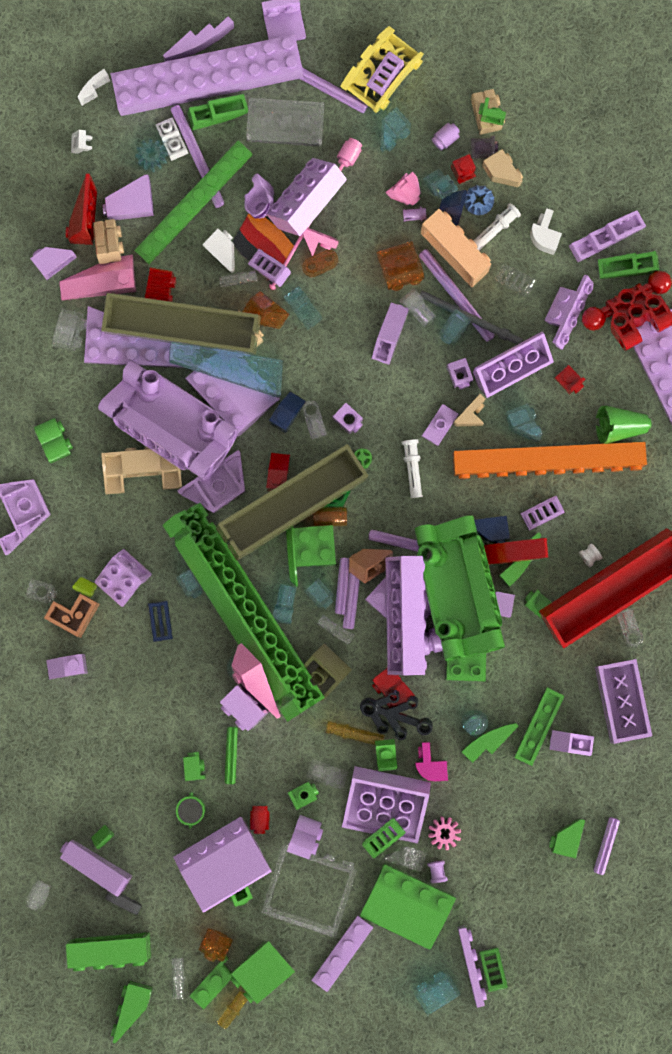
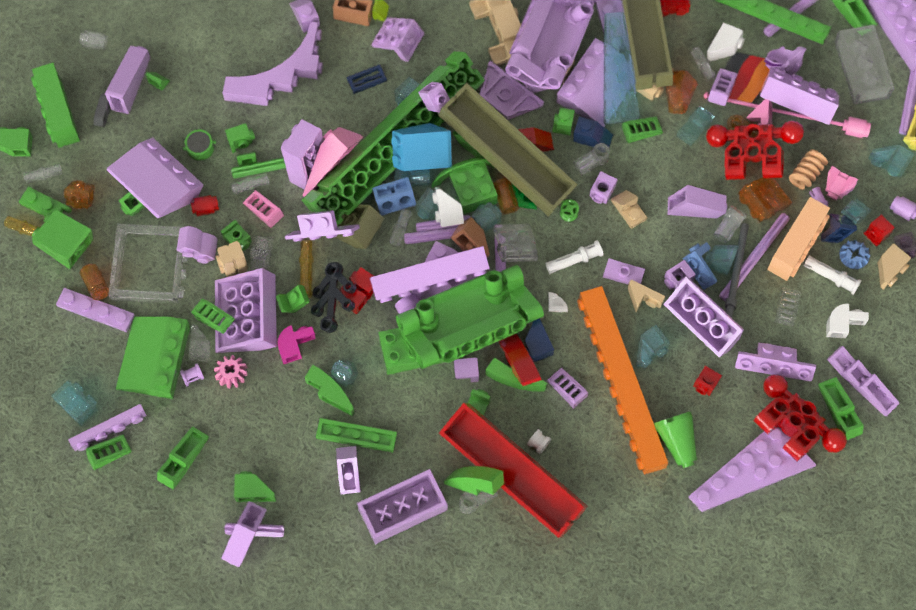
camera: 75 degrees right, 15 degrees down
(142, 735) = (284, 77): none -> lavender arch
(216, 765) = (246, 158): none -> bright green slope
(217, 559) = (434, 96): none -> lavender brick
(247, 768) = (250, 184): none -> clear pin
(264, 586) = (421, 147): none -> dark azure slope
(265, 436) = (563, 121): none -> bright green brick
(291, 753) = (271, 216): none -> bright pink slope
(292, 376) = (632, 137): none -> bright green slope
(303, 627) = (394, 196): none -> medium blue brick
(315, 948) = (94, 281): none -> clear orange piece
(323, 709) = (320, 224): none -> lavender bracket
(331, 806) = (231, 259): none -> tan brick
(336, 576) = (449, 209): none -> white slope
(348, 220) = (772, 165): none -> red connector
(348, 541) = (487, 216): none -> clear light blue brick
(374, 399) = (629, 209): none -> tan slope
(381, 214) = (807, 169): none -> light nougat piece
(384, 521) = (515, 242): none -> clear slope
(451, 354) = (698, 265): none -> medium blue bracket
(454, 499) = (556, 303): none -> white tile
(518, 899) = (182, 458): none -> bright green slope
(614, 856) = (243, 534): none -> lavender slope
(618, 626) = (476, 479): none -> bright green slope

